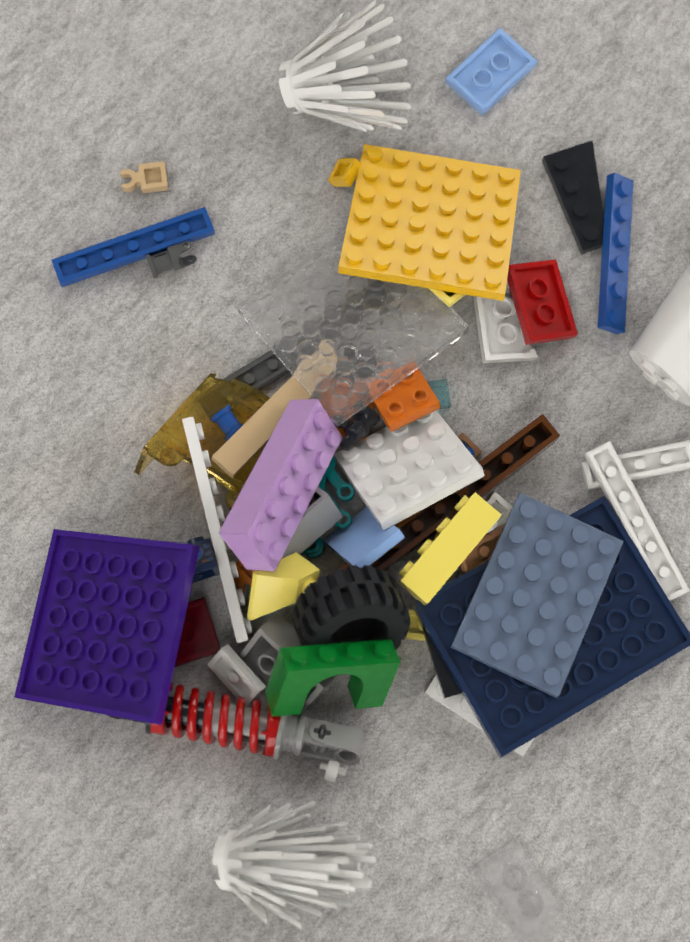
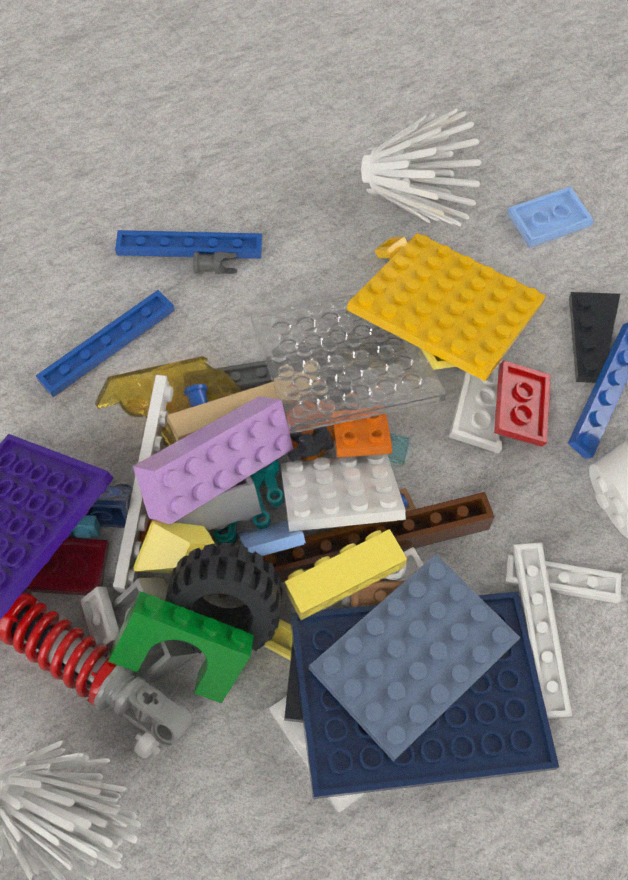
camera: 25 degrees right, 15 degrees down
(101, 393) = (105, 343): none -> blue plate
(151, 178) = (226, 200): tan plate -> none

